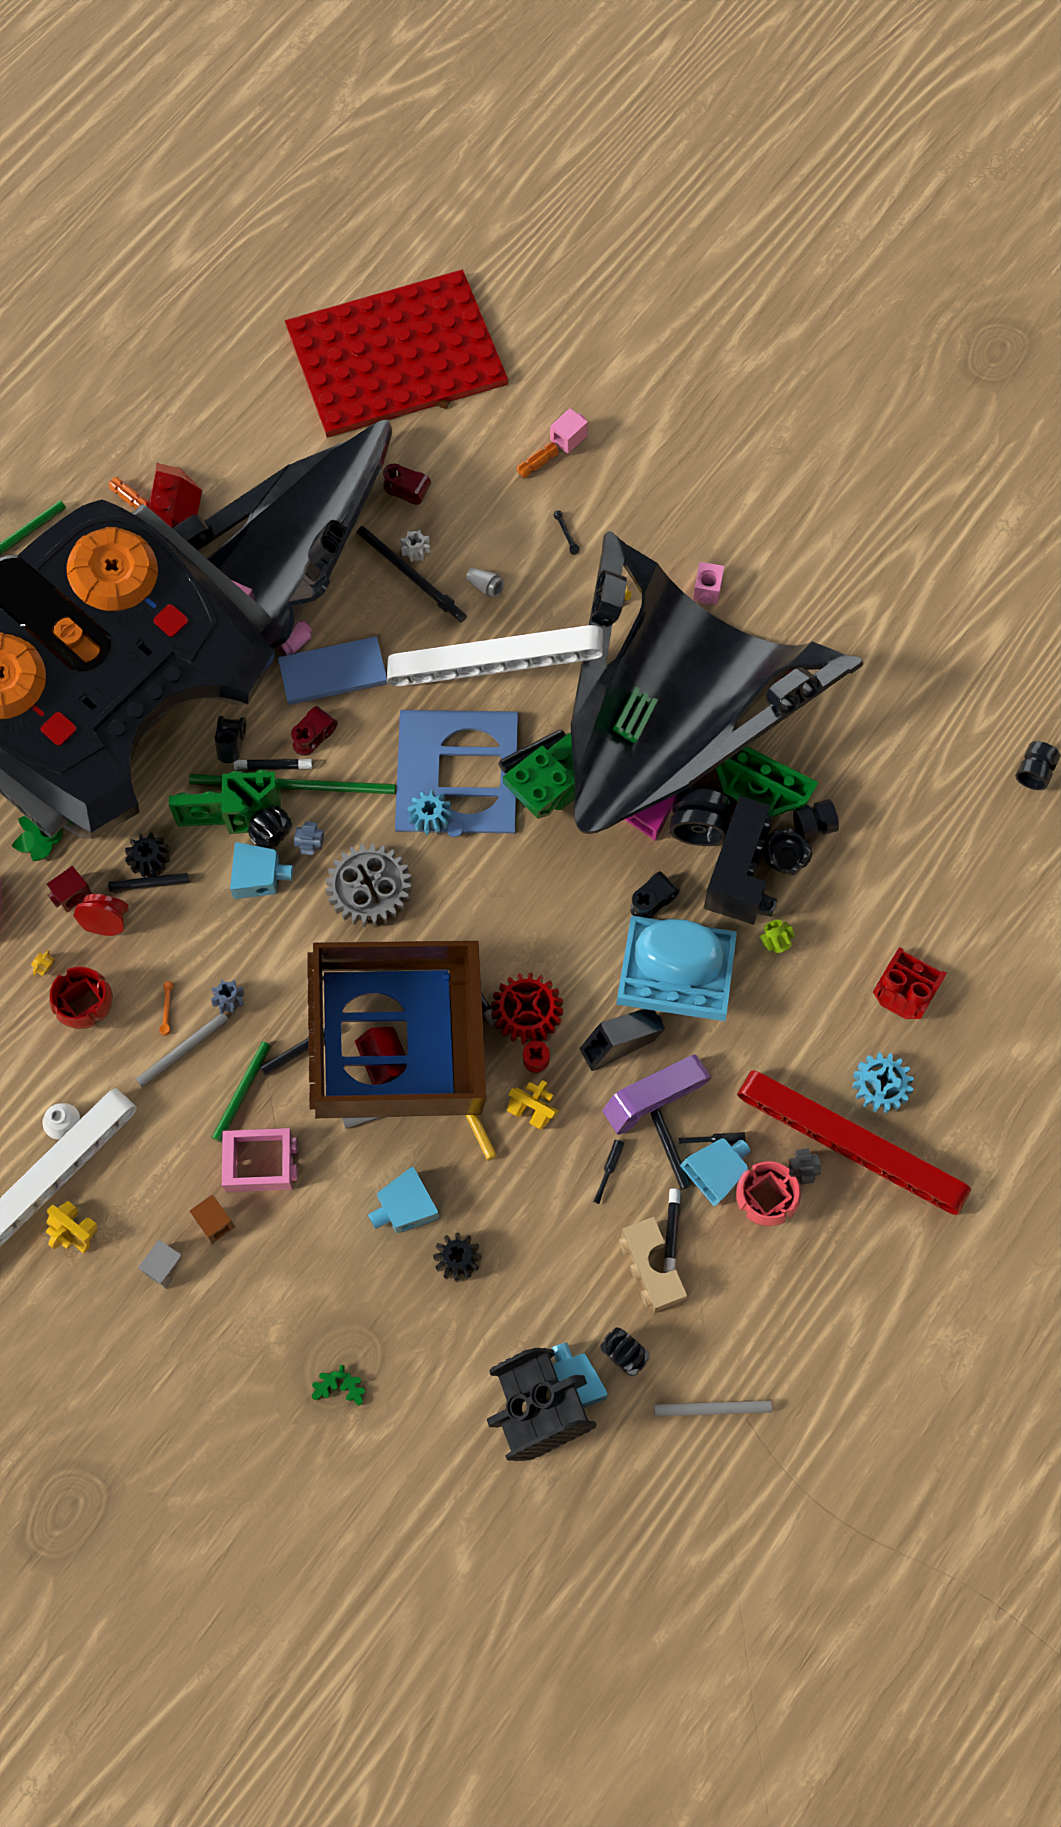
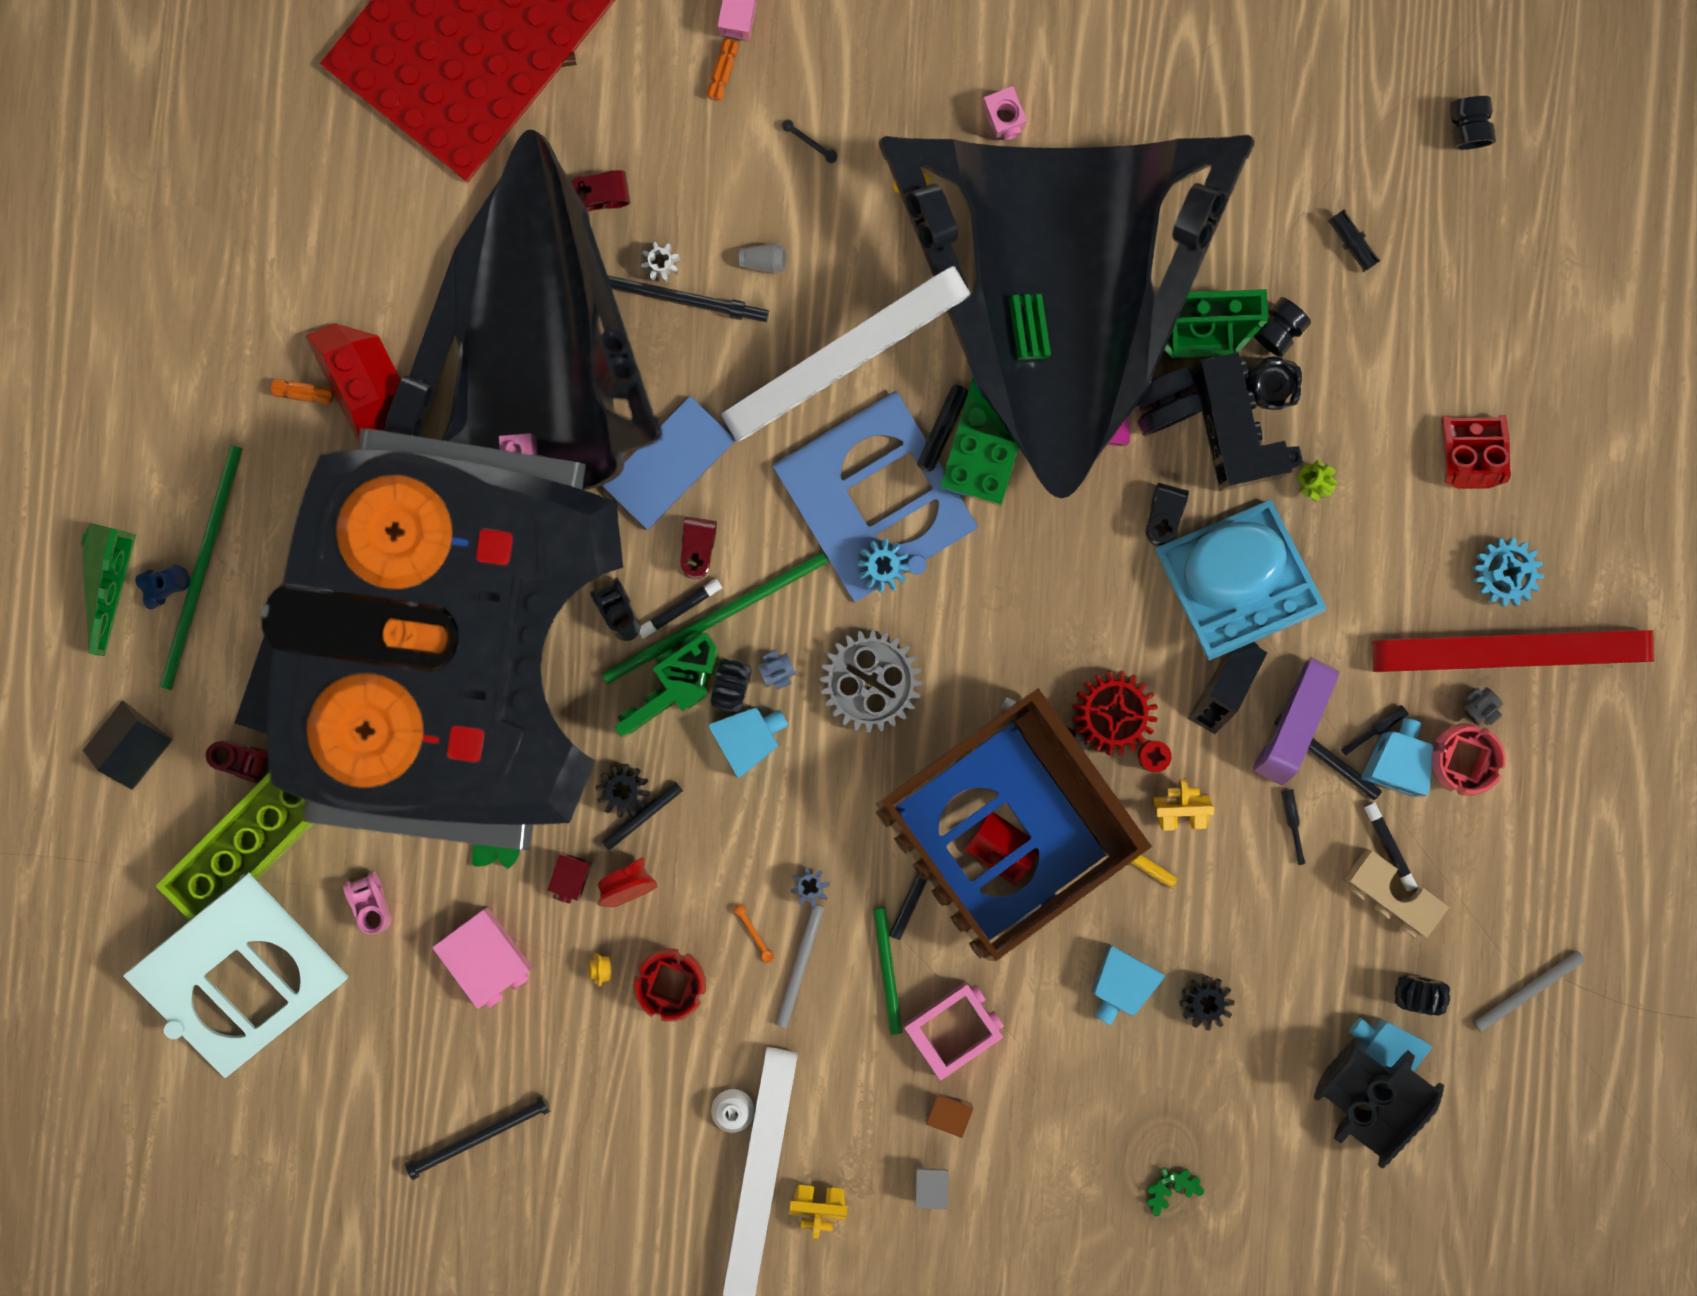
camera: 35 degrees left, 20 degrees up
(905, 796) = (1354, 240): none -> black pin

